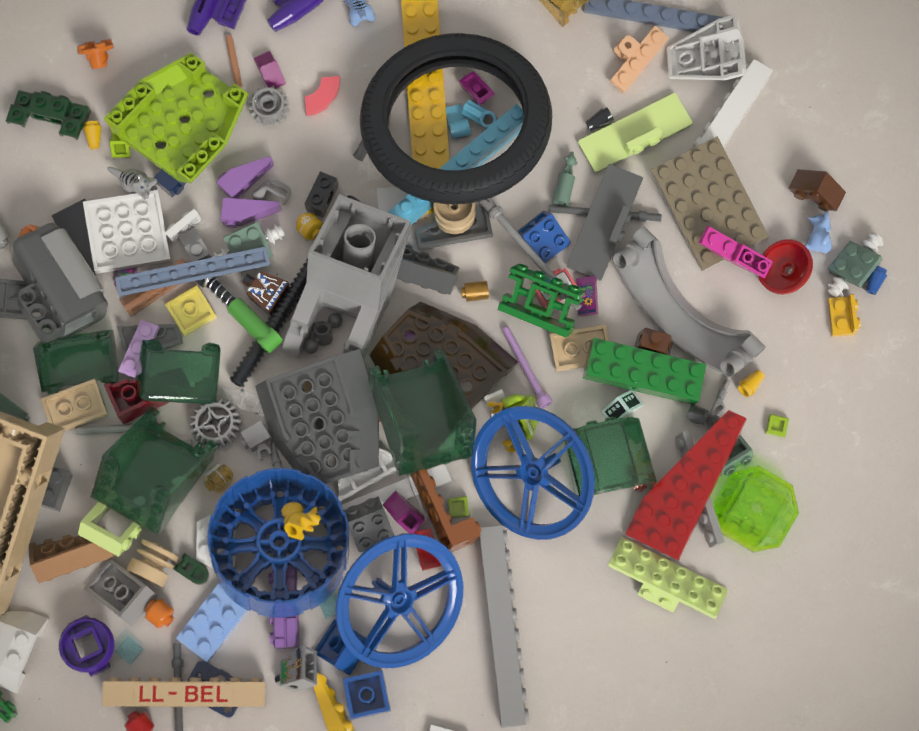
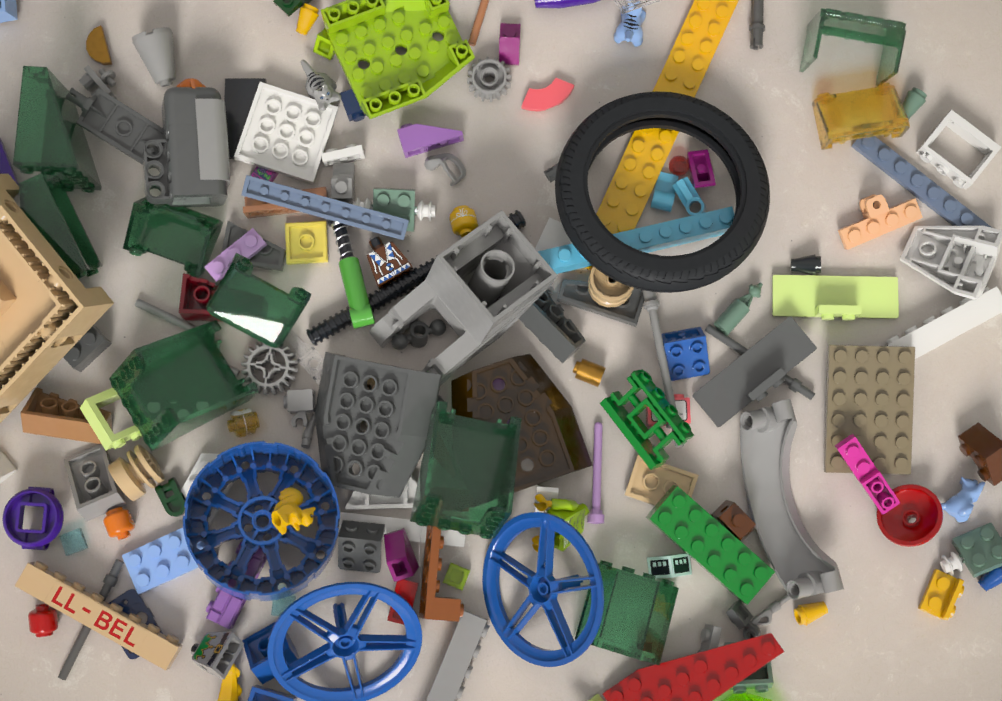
camera: 30 degrees right, 5 degrees up
(75, 405) = (147, 278): tan plate -> none
(245, 211) = (408, 172): medium lavender slope -> none
(321, 194) = (492, 195): black brick -> none
(457, 95) = (679, 165): none -> clear red plate
(590, 299) = (701, 428): tile -> none
(777, 425) = (812, 668): lime tile -> none

